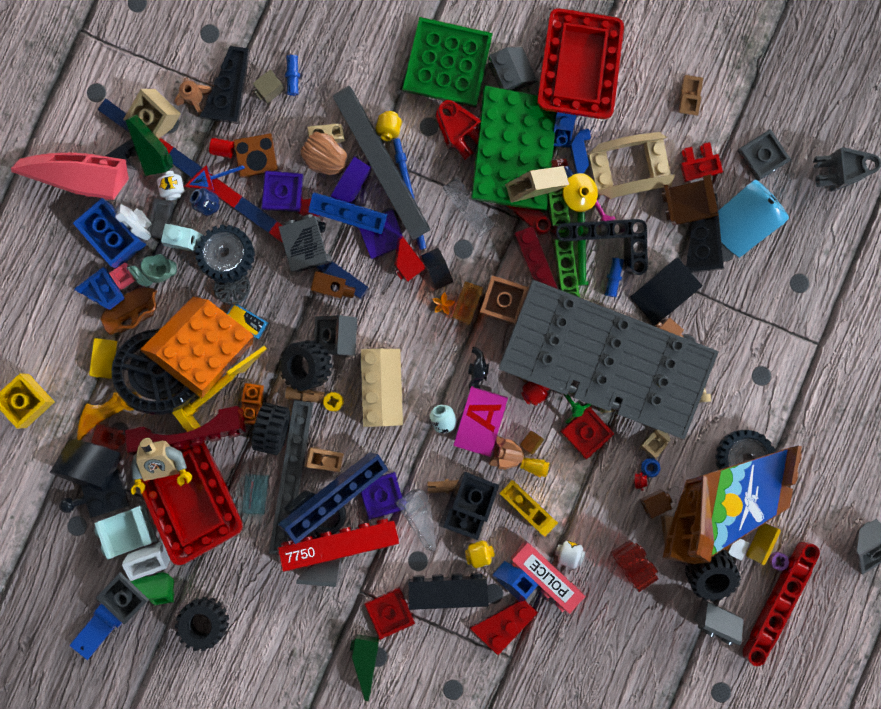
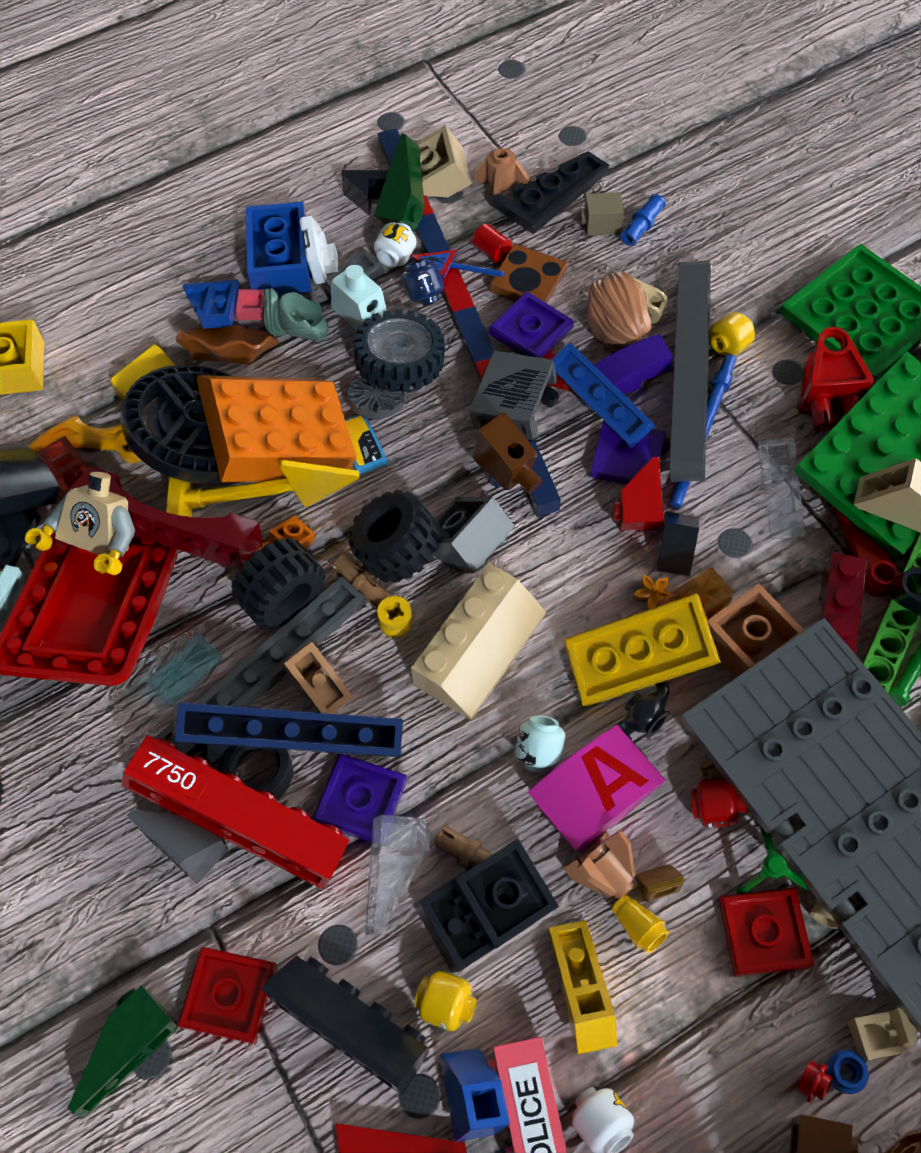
camera: 40 degrees right, 25 degrees down
(76, 173) = (303, 171): coral wedge -> none
(459, 344) = (641, 650): none -> yellow tile

